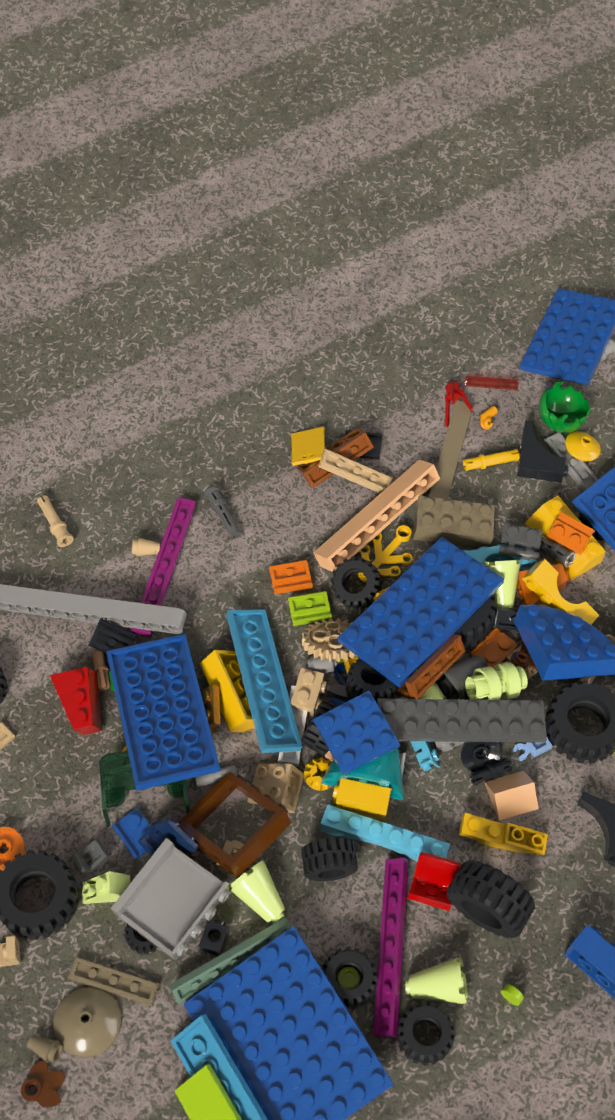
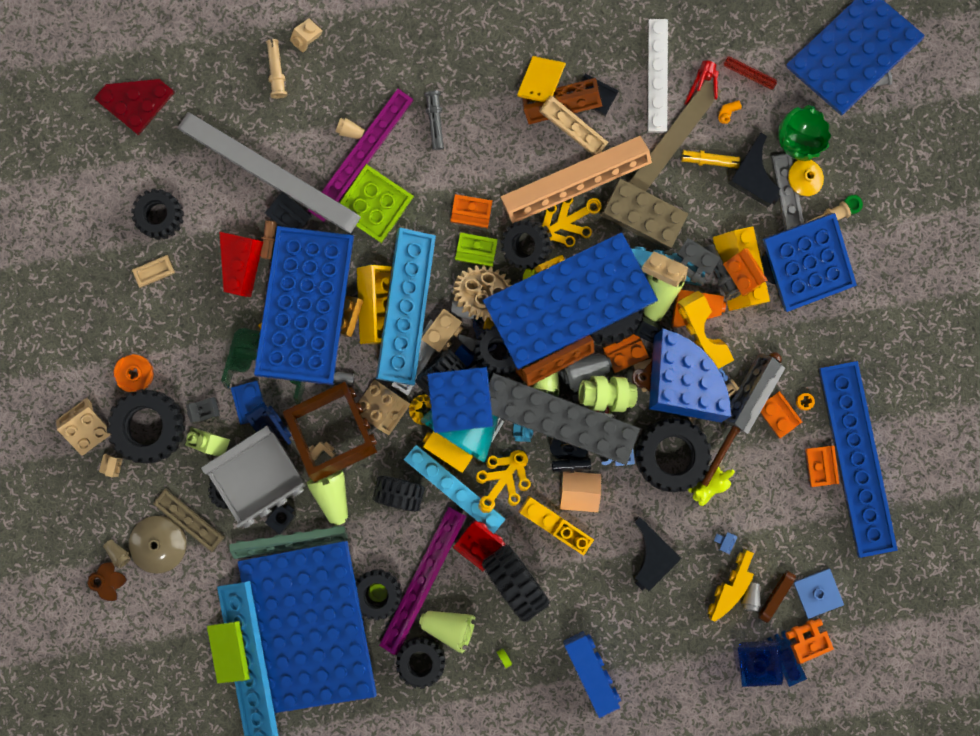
camera: 25 degrees right, 25 degrees up
(71, 483) = (305, 34): none -> tan bracket
(200, 598) = (376, 202): none -> lime plate
(411, 412) = (657, 75): none -> white plate
(434, 787) = (505, 478): none -> yellow plant
(497, 551) = (665, 269): none -> tan bracket

